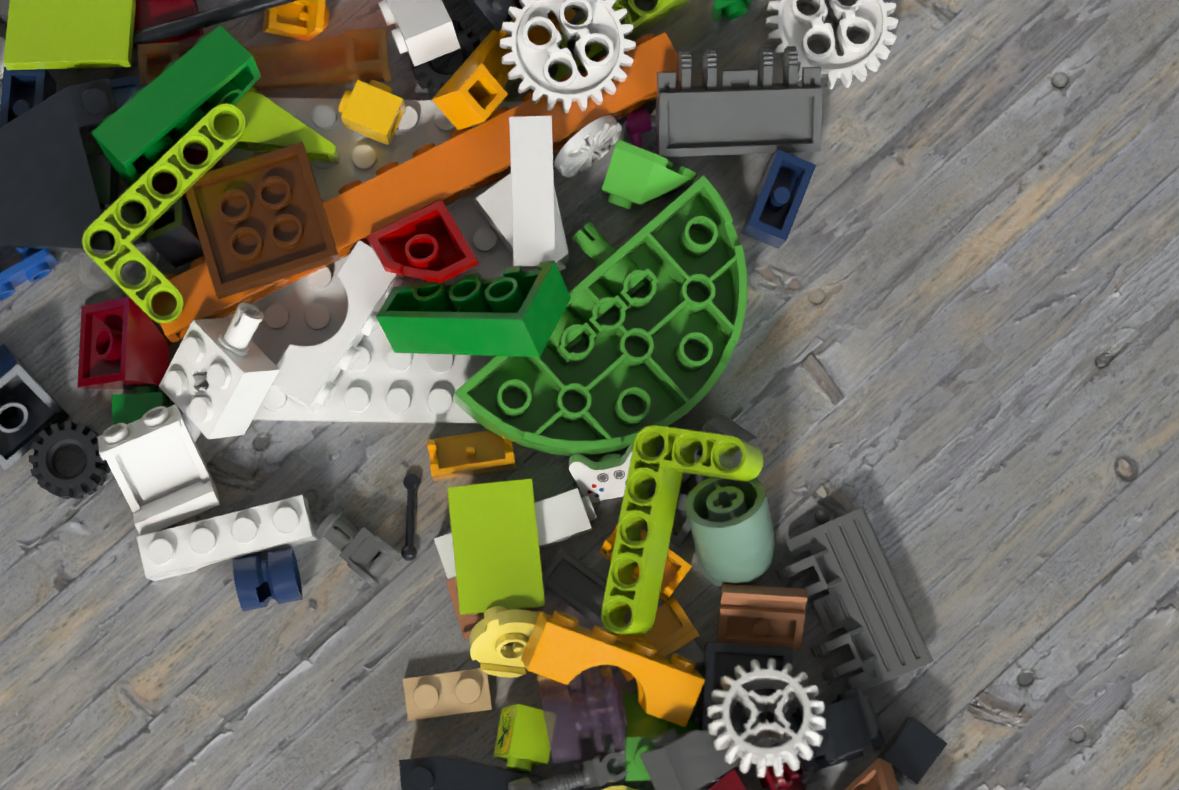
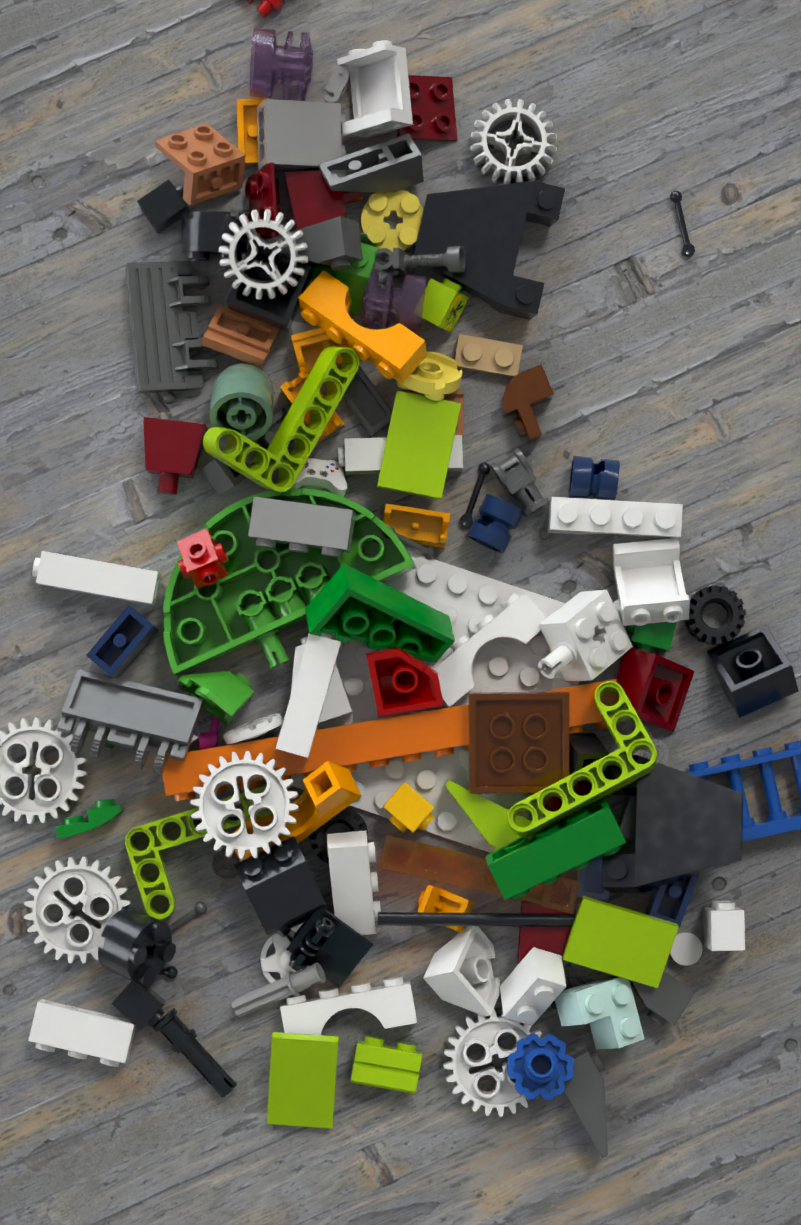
camera: 165 degrees left, 5 degrees up
(374, 484) = (495, 523): none -> dark blue wheel
(389, 658) = (522, 393): none -> reddish brown brick
(444, 428) = (429, 553): none -> dark grey hinge
(607, 392) = (301, 526): none -> light grey brick
(714, 314) = (202, 559): none -> red brick
(797, 449) = (172, 450): none -> dark red torso
(835, 268) = (96, 578): none -> white brick

